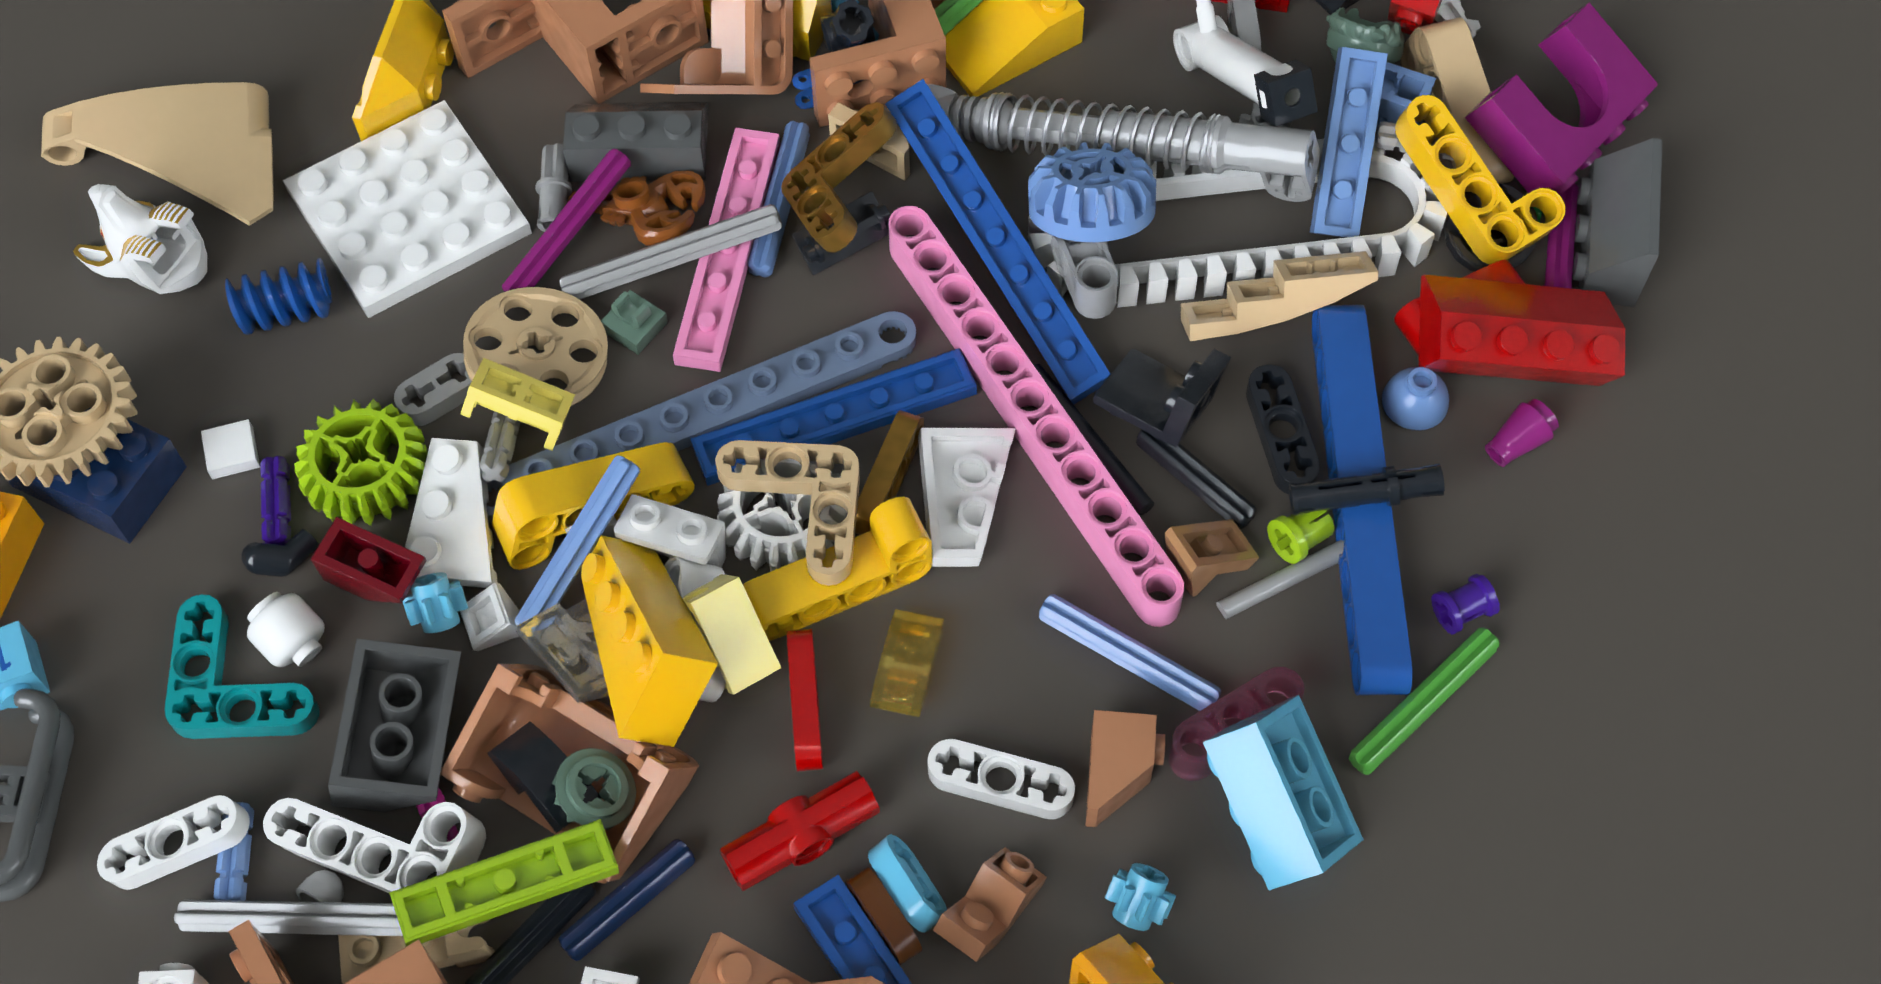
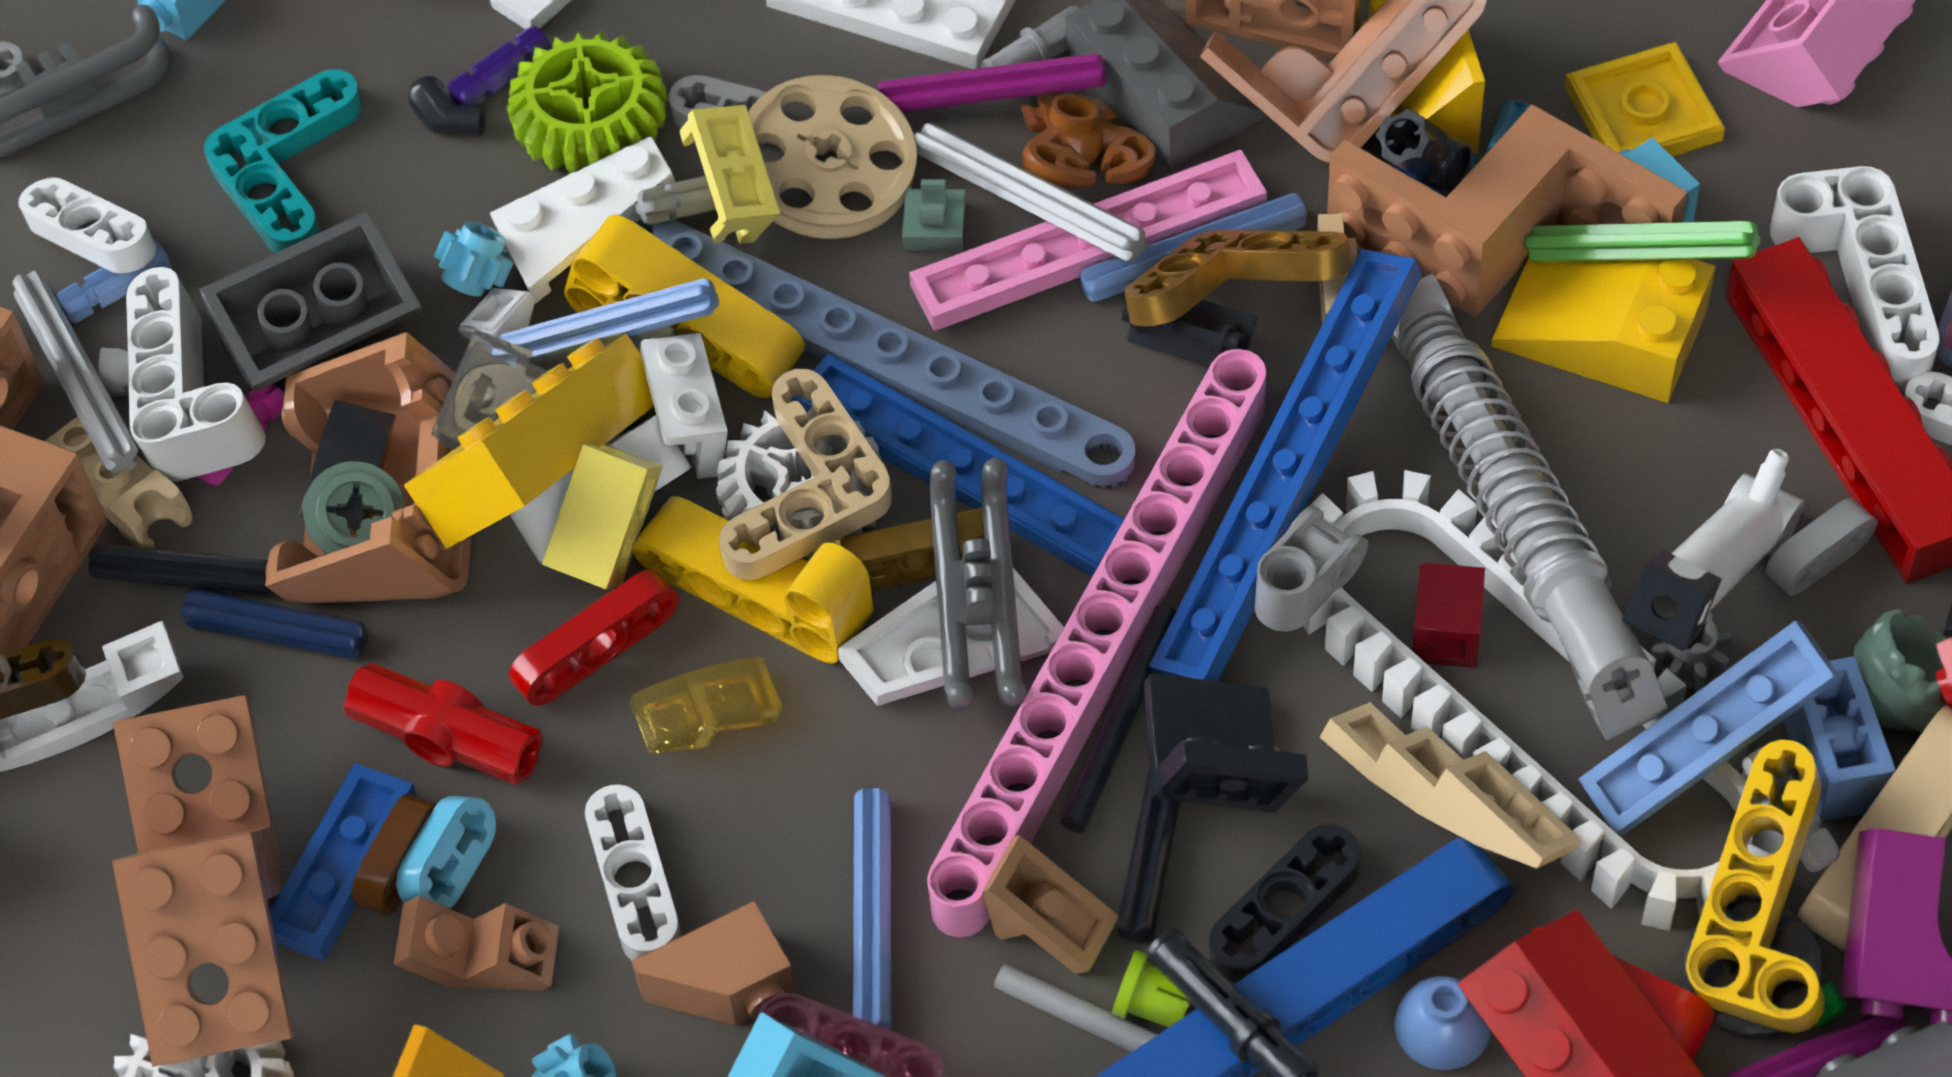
camera: 60 degrees right, 5 degrees down
(285, 629) = (361, 163): white head -> none
(366, 563) = (466, 169): dark red slope -> none
(504, 883) = (191, 492): lime plate -> none
(958, 454) = (977, 587): none -> dark grey piece
(1092, 194) = (1395, 508): medium blue gear -> none
(1167, 230) = (1448, 614): none -> dark red panel

